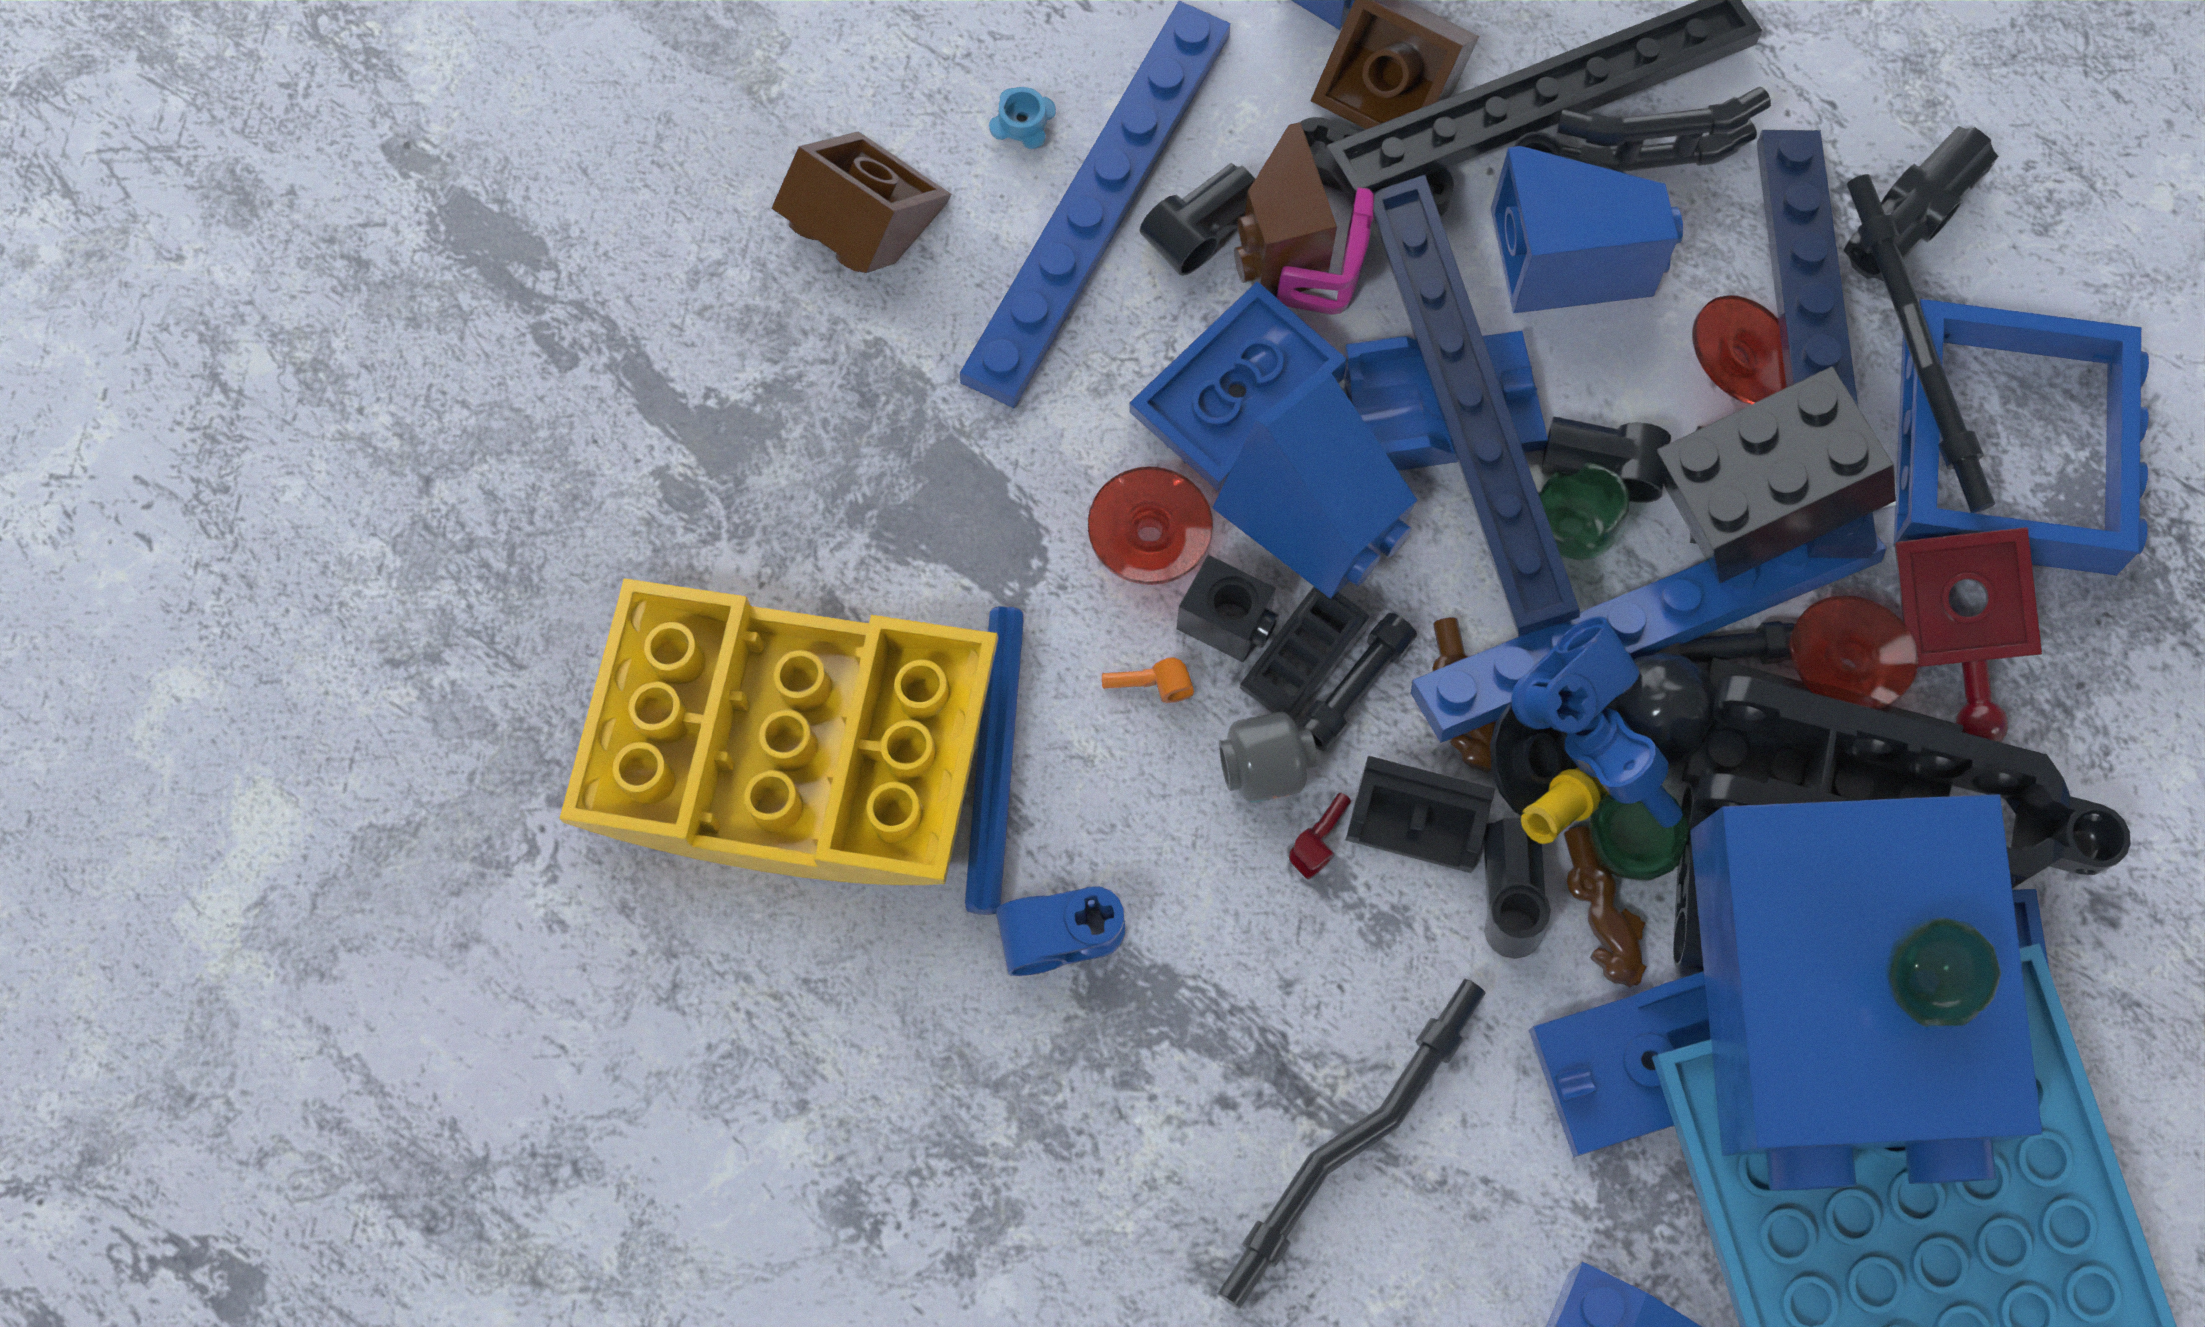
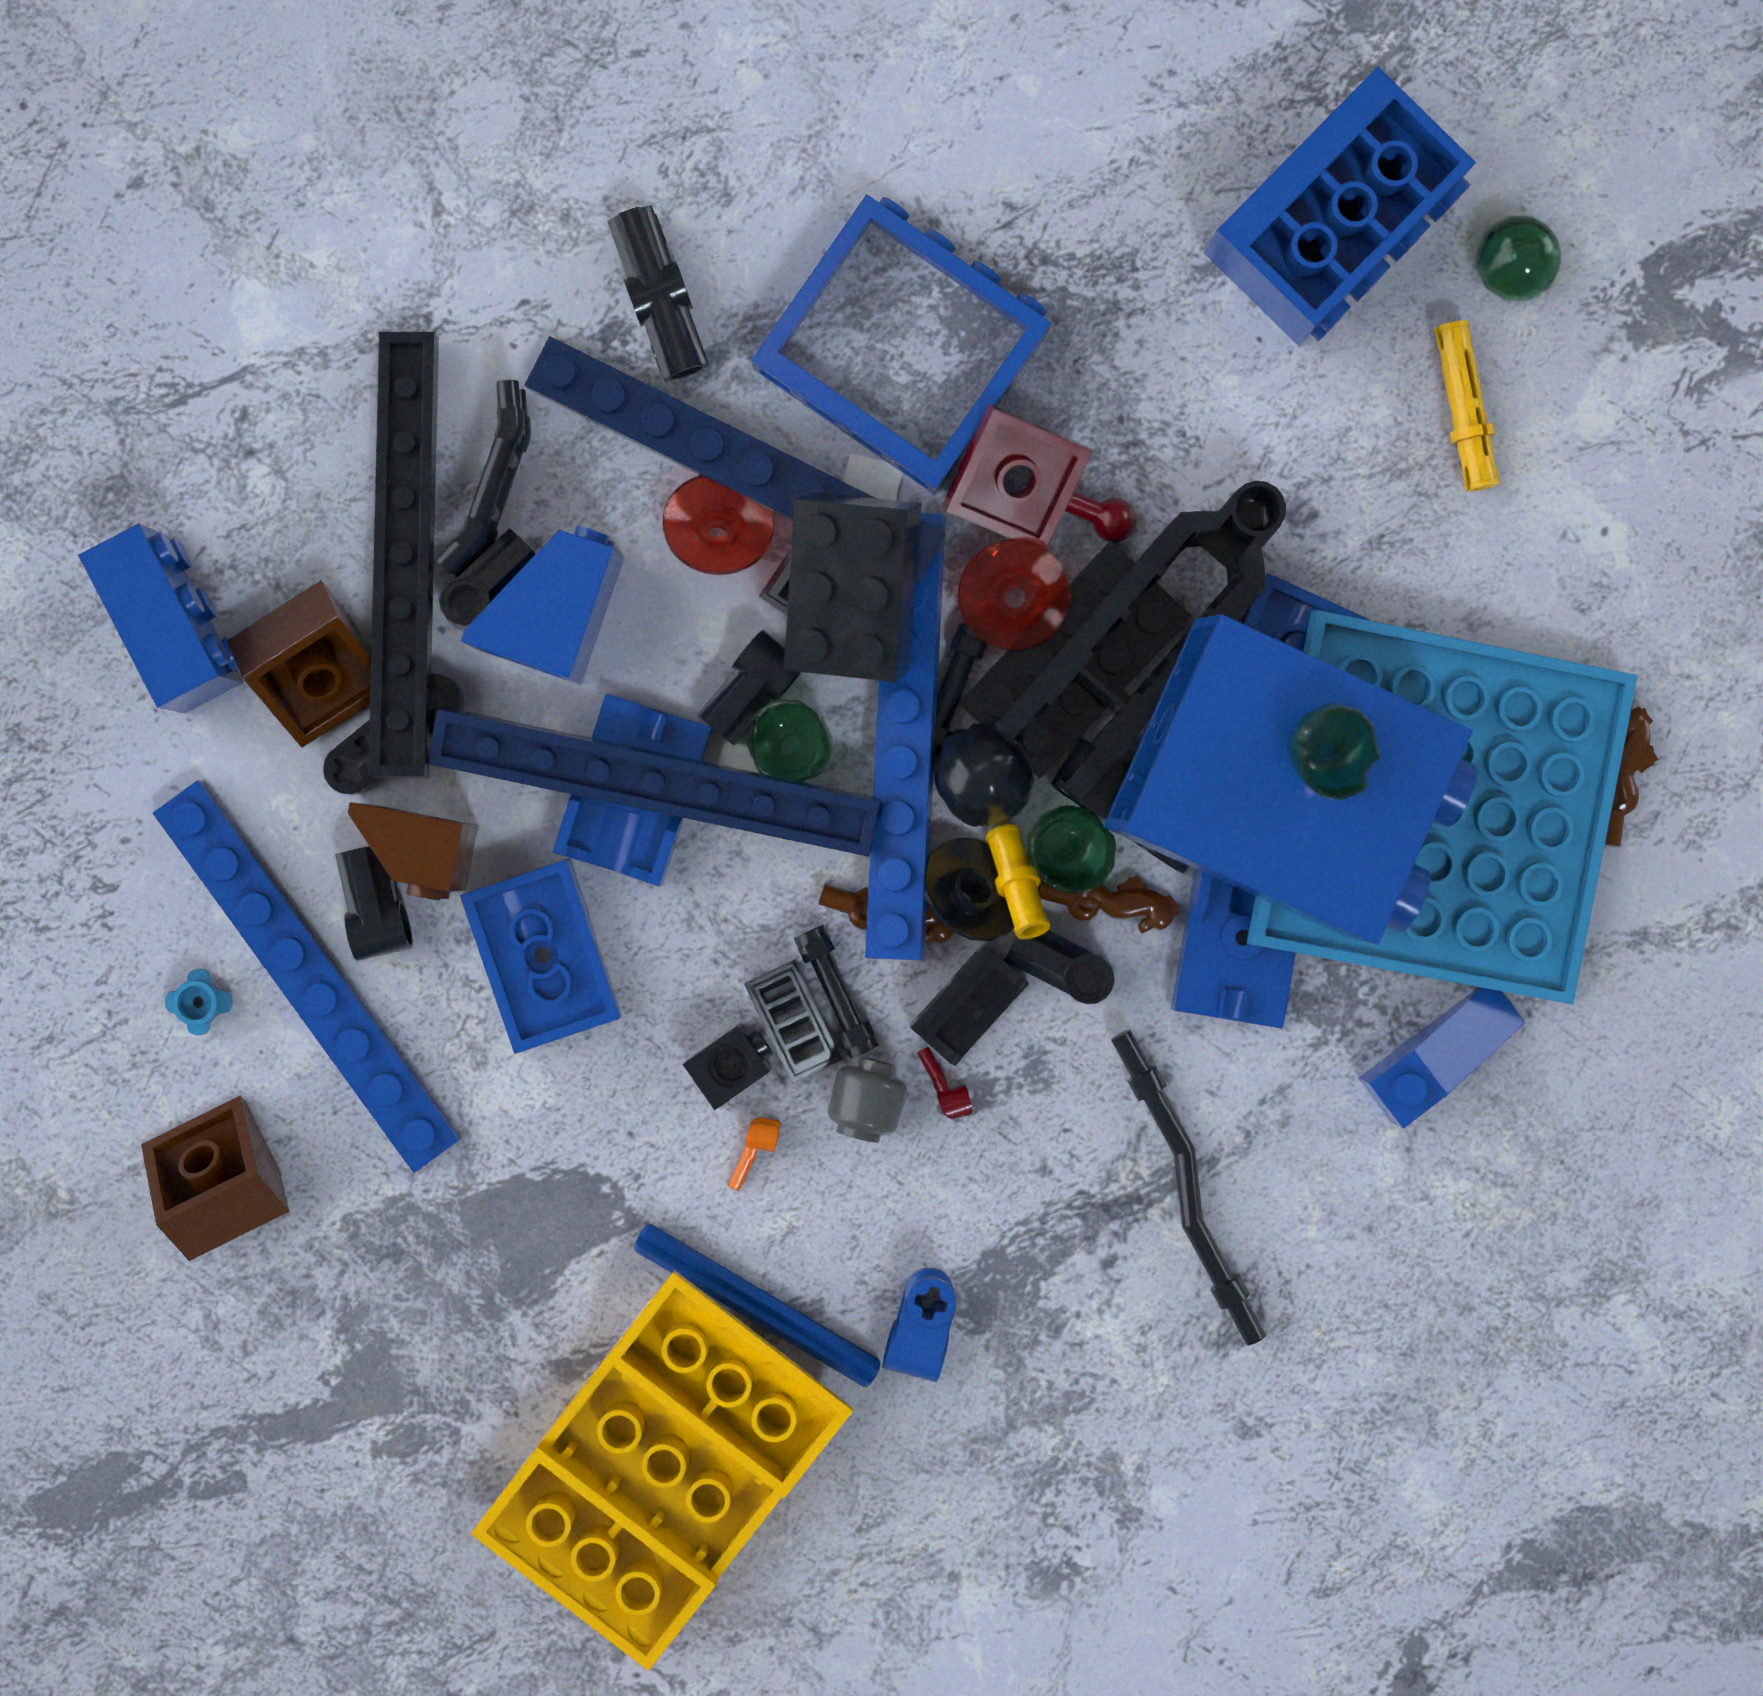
camera: 60 degrees left, 20 degrees up
(1155, 500) = (611, 1114): clear red dish -> none
(1318, 488) = (675, 949): blue slope -> none
(1355, 249) = (477, 803): dark pink piece -> none
(1575, 679) = (937, 836): blue piece -> none
(1625, 764) = (1021, 845): blue piece -> none
(1959, 447) = (898, 415): black bar -> none

